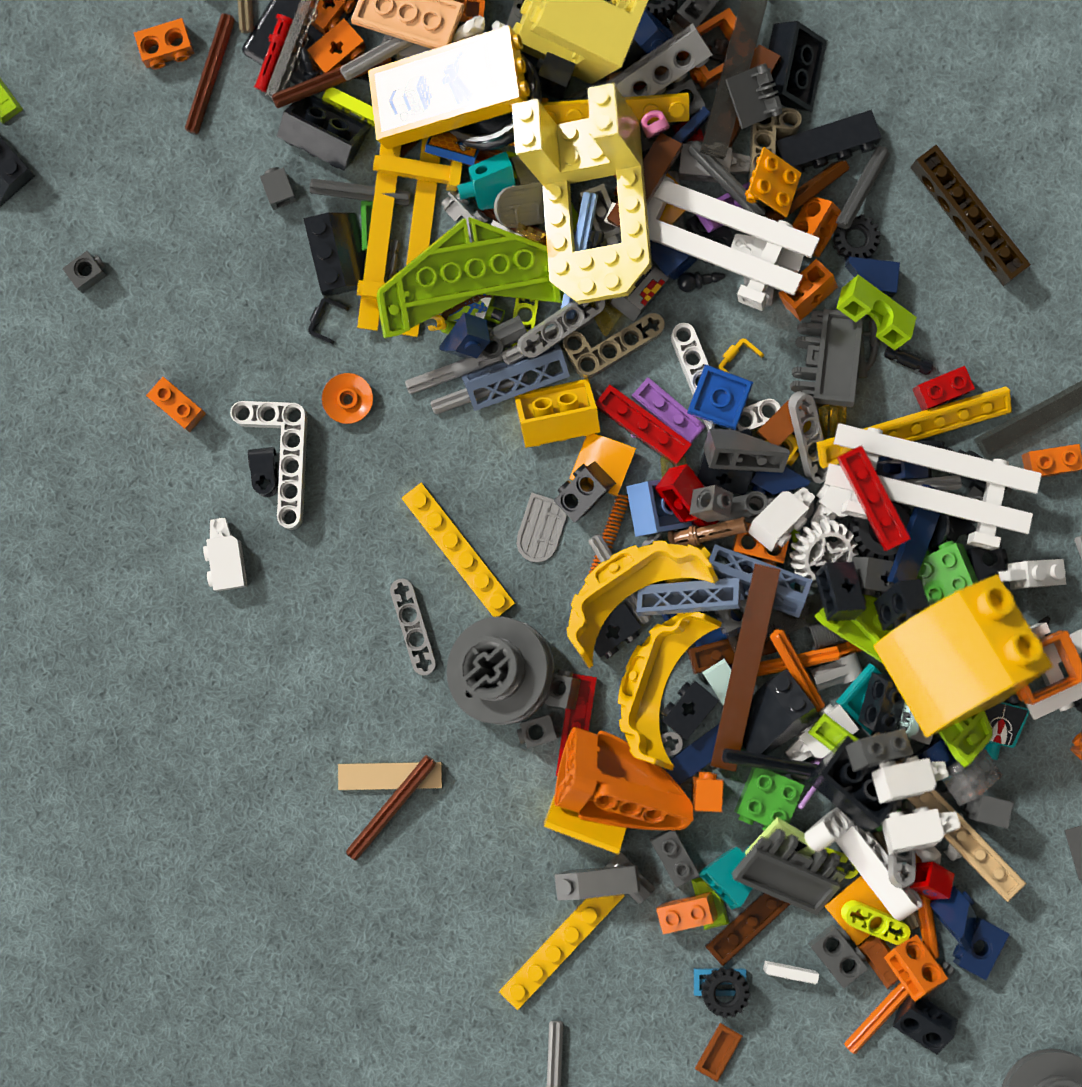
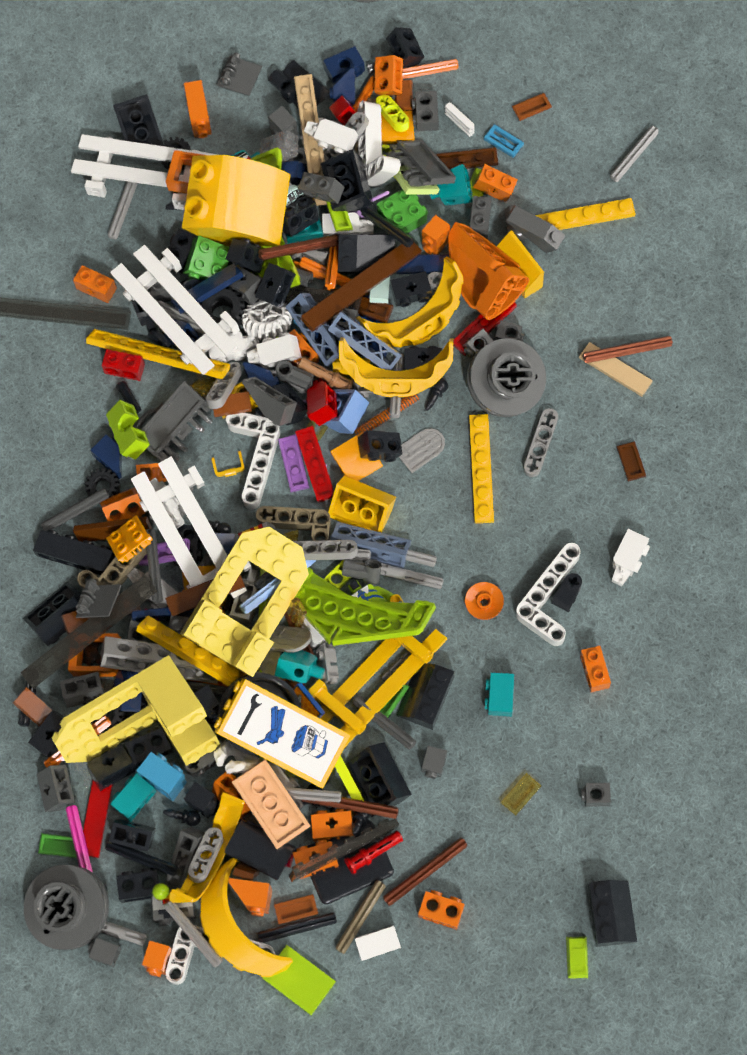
camera: 135 degrees left, 15 degrees down
(166, 219) = (521, 794): none -> clear yellow tile
(258, 308) = (501, 694): none -> teal brick
(298, 675) = (631, 461): none -> reddish brown tile
(317, 315) = (468, 666): black piece -> none
(467, 337) = (384, 579): dark blue slope -> none
(569, 595) = (439, 388): none -> black bar
(655, 128) = (172, 620): bright pink tile -> none
(711, 503) = (315, 387): dark grey brick -> none
(720, 397) = (258, 443): blue tile -> none
(725, 1008) = (501, 139): black tyre -> none
(849, 658) = (298, 247): none -> copper axle
(873, 498) = (217, 316): red plate -> none
(907, 779) = (317, 162): white hinge -> none
(969, 215) = (26, 451): dark brown brick -> none
(1032, 897) = (285, 83): none -> black panel
(1034, 574) = (156, 229): white hinge -> none

